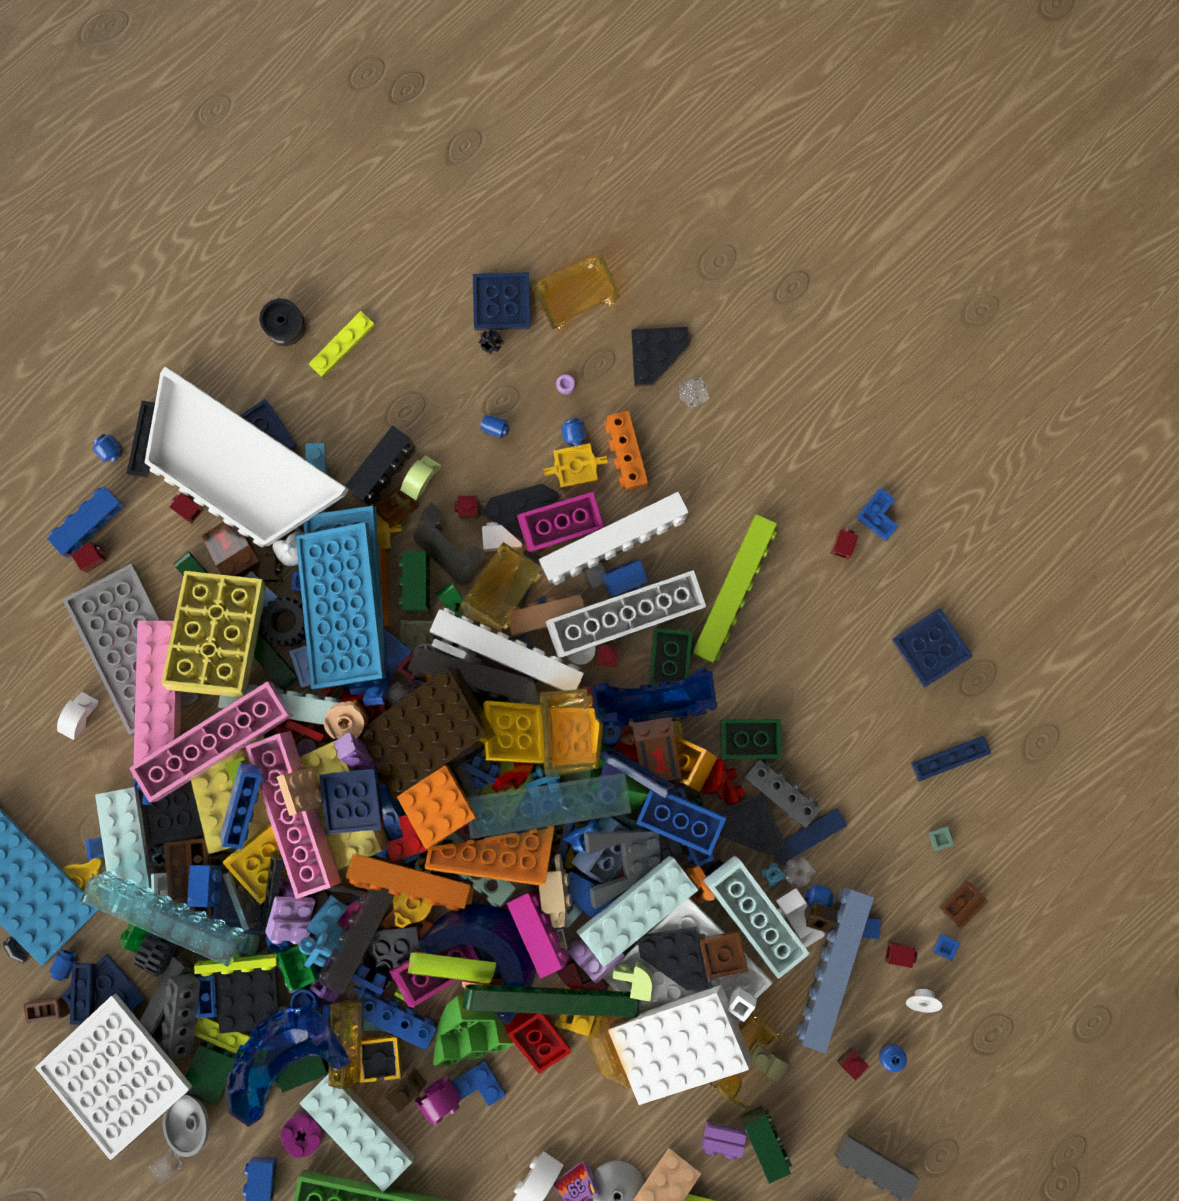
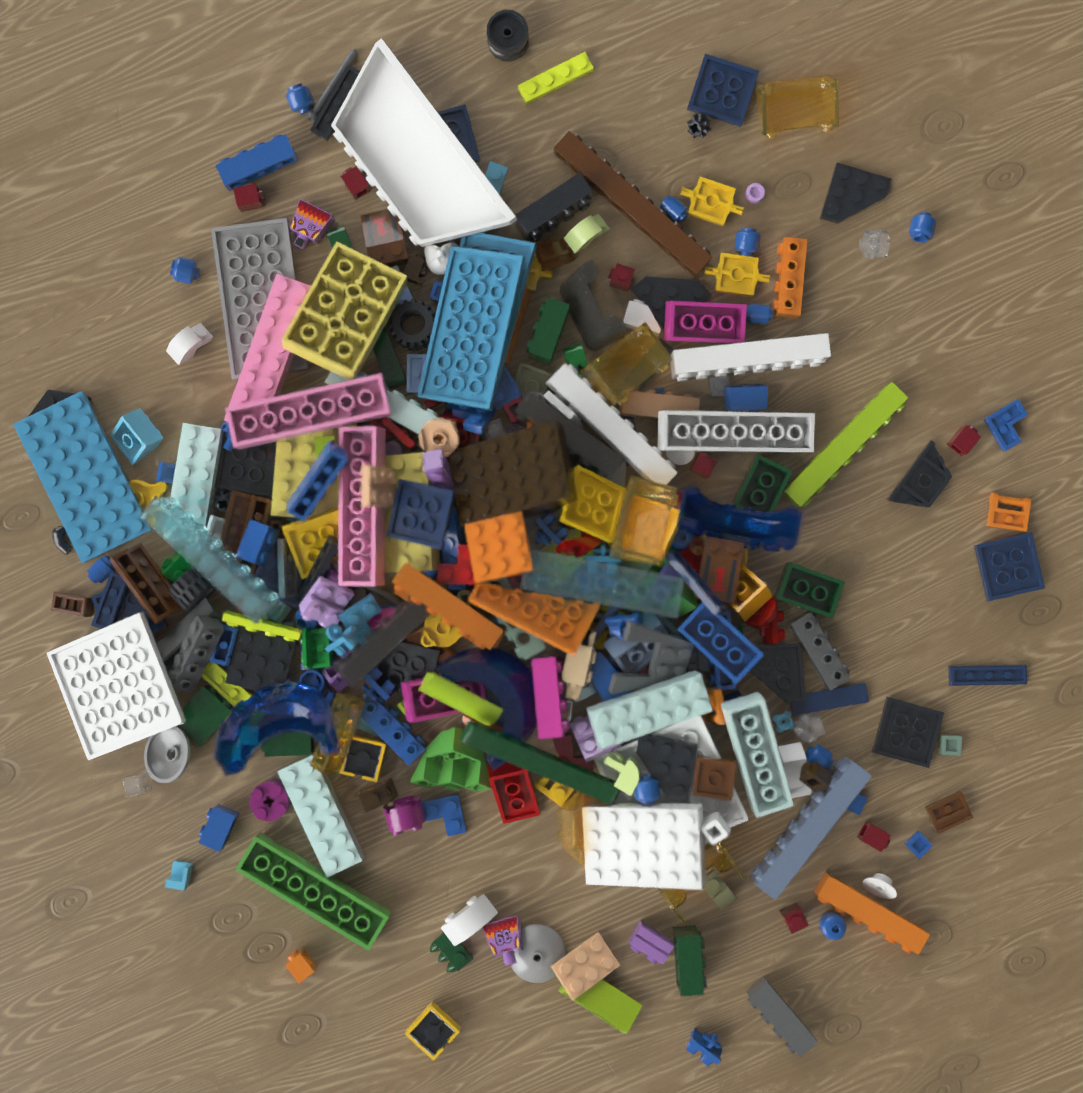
camera: 10 degrees right, 5 degrees up
(50, 647) = (184, 270): none -> blue head
(54, 822) = (136, 436): none -> medium azure slope
(109, 962) = (146, 582): none -> reddish brown brick
(129, 440) = (312, 116): none -> dark grey bar
(155, 561) = (310, 223): none -> torso
(453, 435) = (632, 204): none -> reddish brown brick
(527, 406) = (711, 201): none -> yellow plate
(608, 495) = (758, 314): none -> blue brick
(664, 990) = (647, 790): none -> blue head
(732, 361) = (922, 227): none -> blue head
(820, 595) = (923, 479): none -> black wing
(895, 841) = (907, 732): none -> black plate
(914, 602) = (1008, 518): none -> orange plate
(926, 1031) = (871, 913): none -> orange brick

